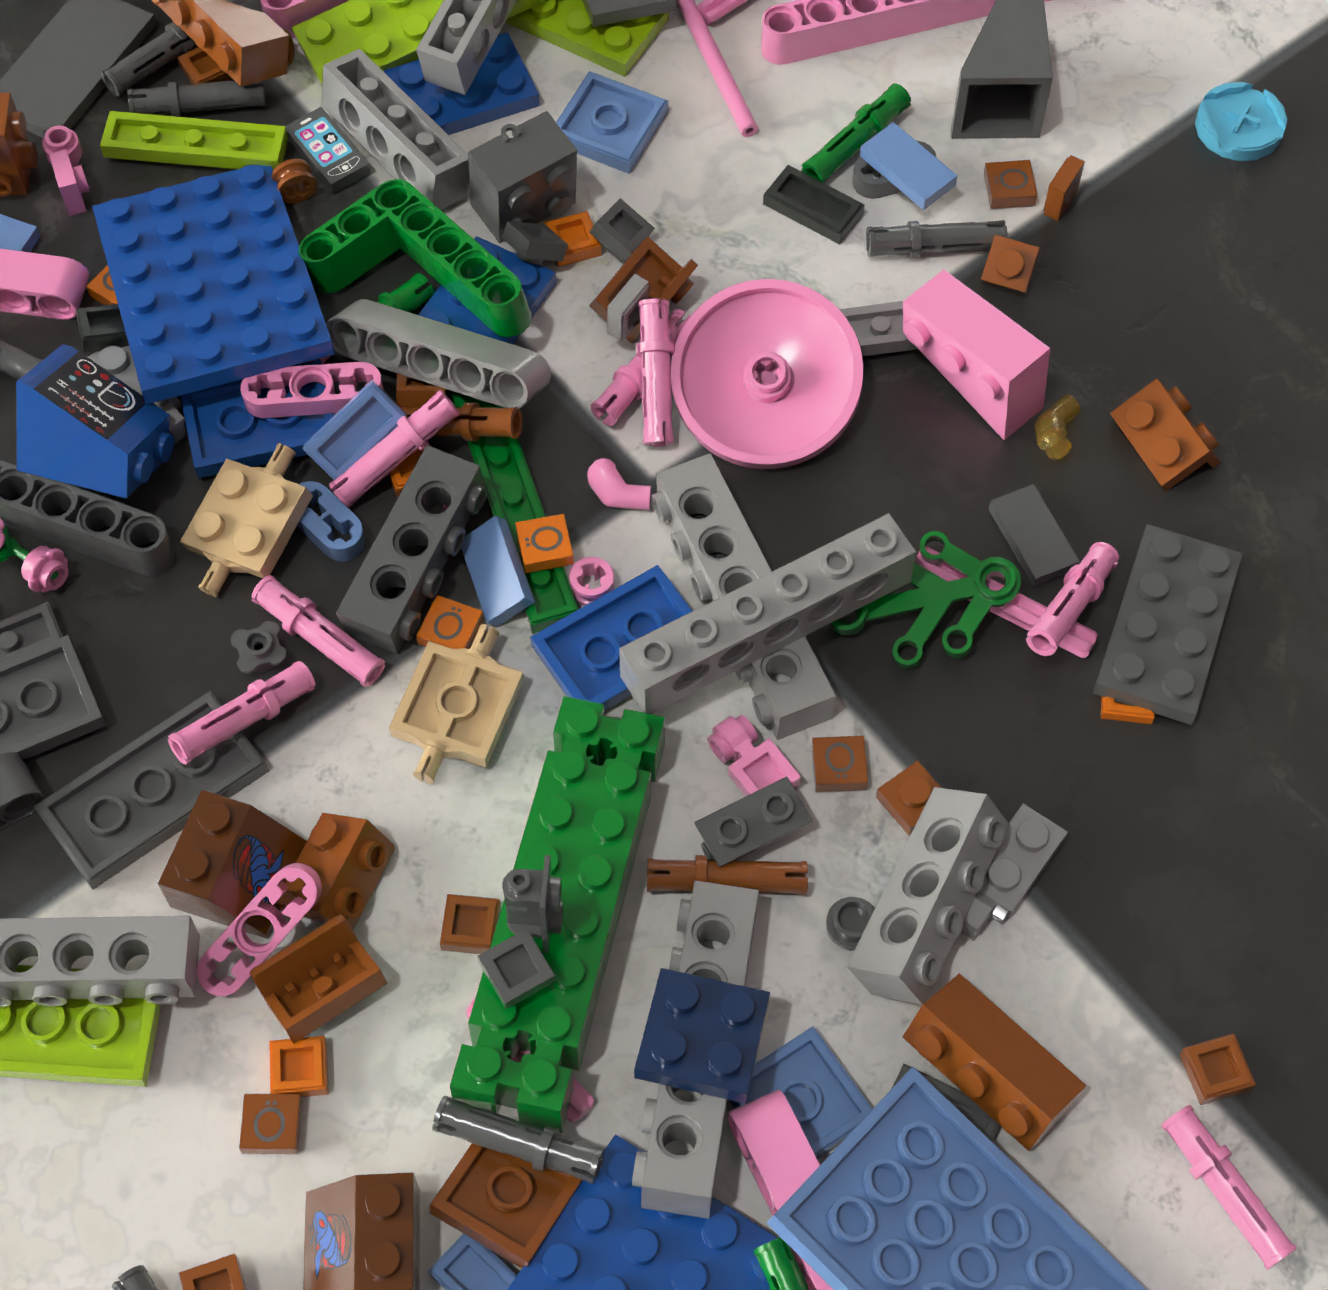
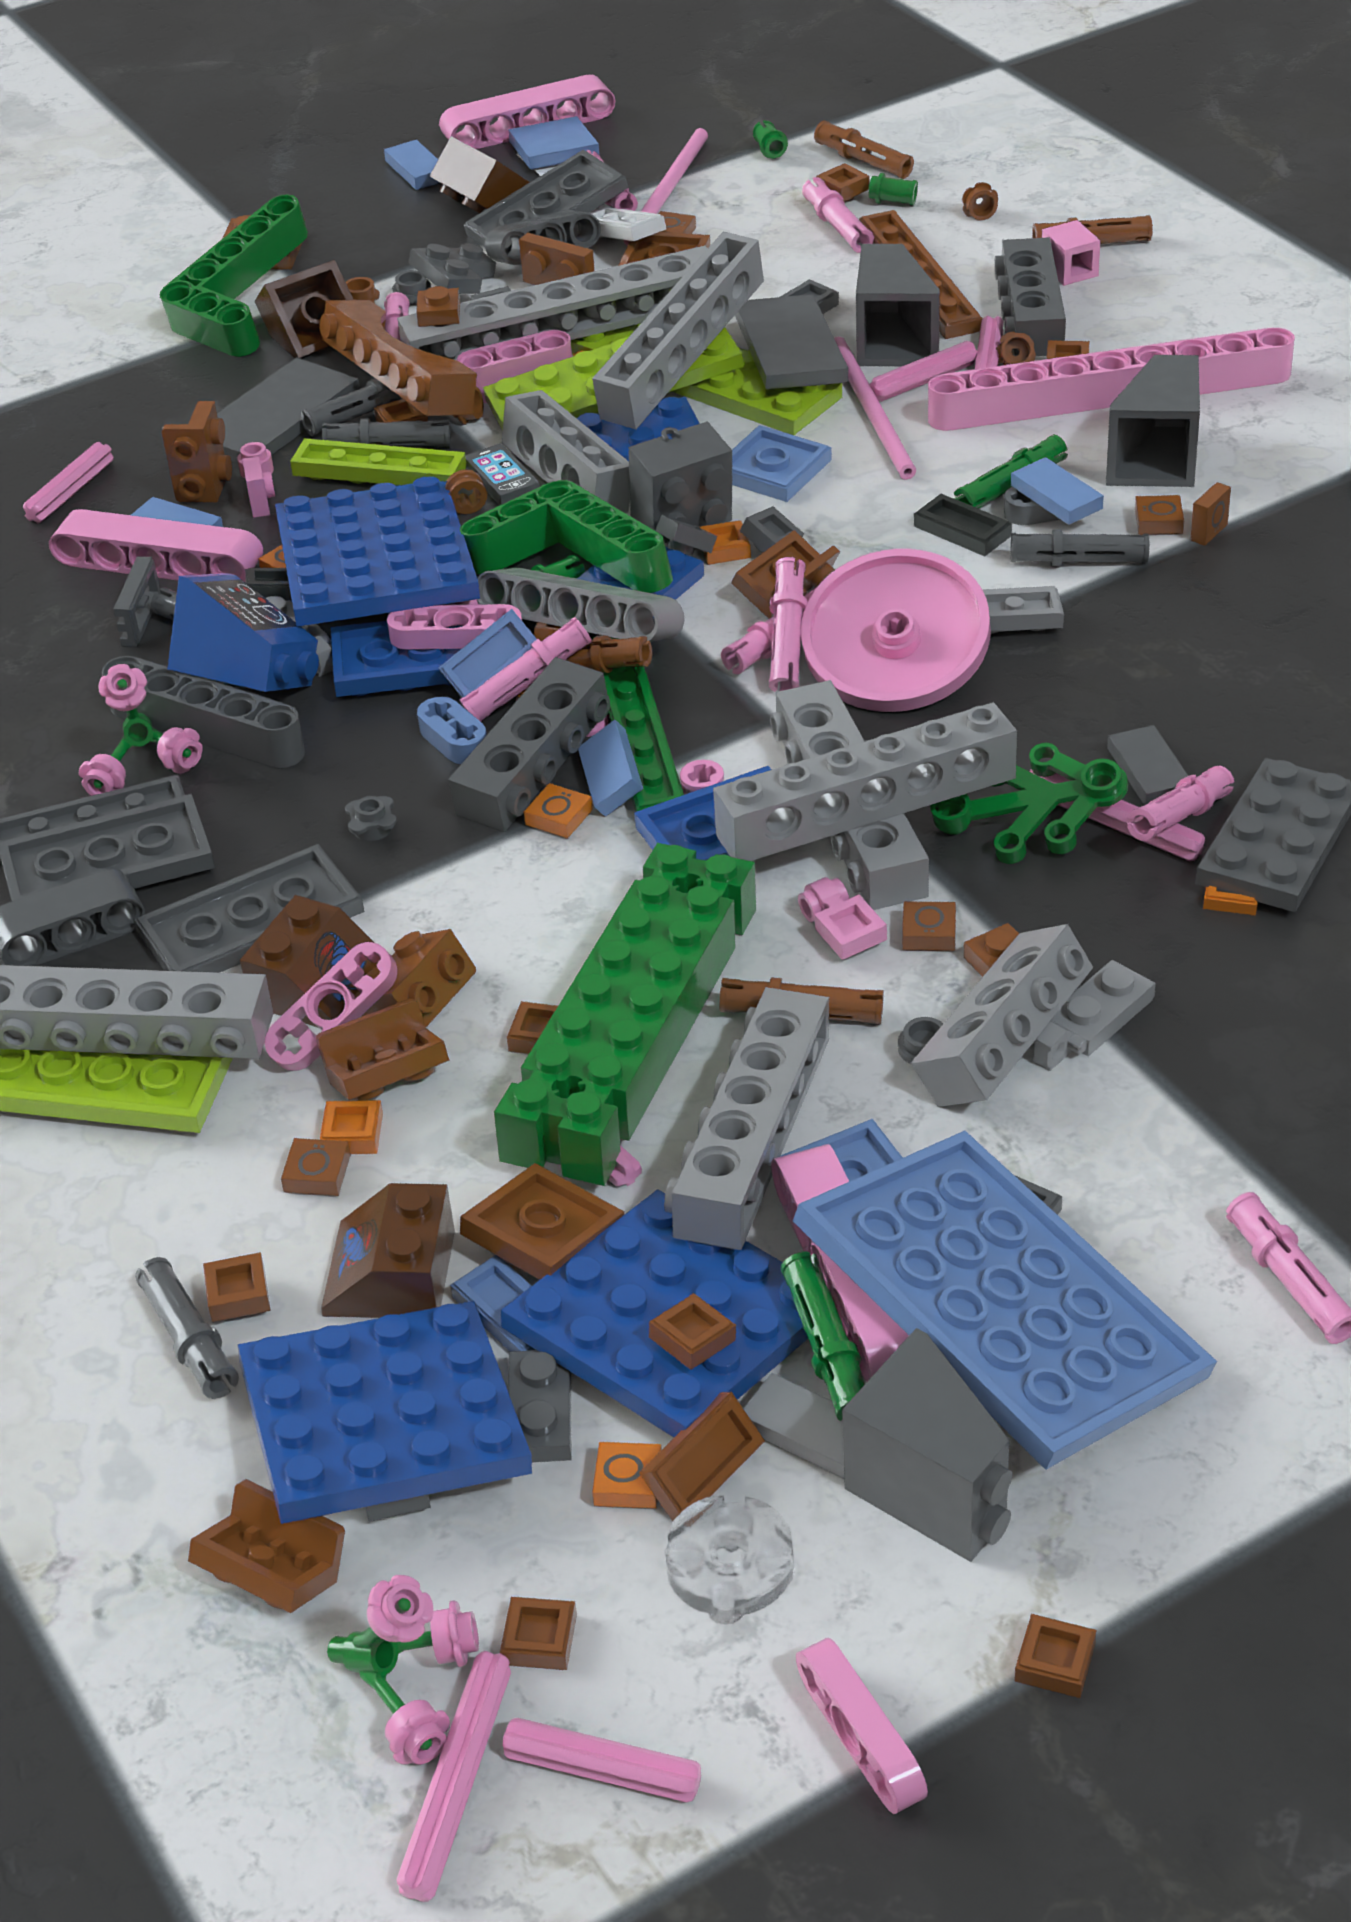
camera: 10 degrees right, 20 degrees down
(246, 519) = (376, 721): tan plate -> none
(259, 702) = (364, 849): bright pink pin -> none
(301, 618) = (417, 796): bright pink pin -> none
(456, 704) = (555, 862): tan plate -> none
(516, 968) = (573, 1014): dark grey plate -> none
(529, 1143) = (578, 1178): dark grey pin -> none
(534, 902) = (602, 936): dark grey hinge -> none
(544, 543) = (659, 745): orange tile -> none
(613, 490) = (735, 718): bright pink arm -> none
(624, 309) = (761, 574): light grey tile -> none
(702, 1035) = (752, 1087): dark blue plate -> none
(752, 822) = (839, 952): dark grey hinge -> none
(979, 351) = (1109, 618): bright pink wedge -> none
(993, 1061) = (1053, 1146): dark orange brick -> none
(1010, 263) = (1150, 566): dark orange plate -> none
(1051, 427) = (1178, 685): clear yellow arm -> none
(1164, 434) = (1291, 693): dark orange bracket -> none
(1217, 1069) = (1292, 1179): dark orange tile -> none

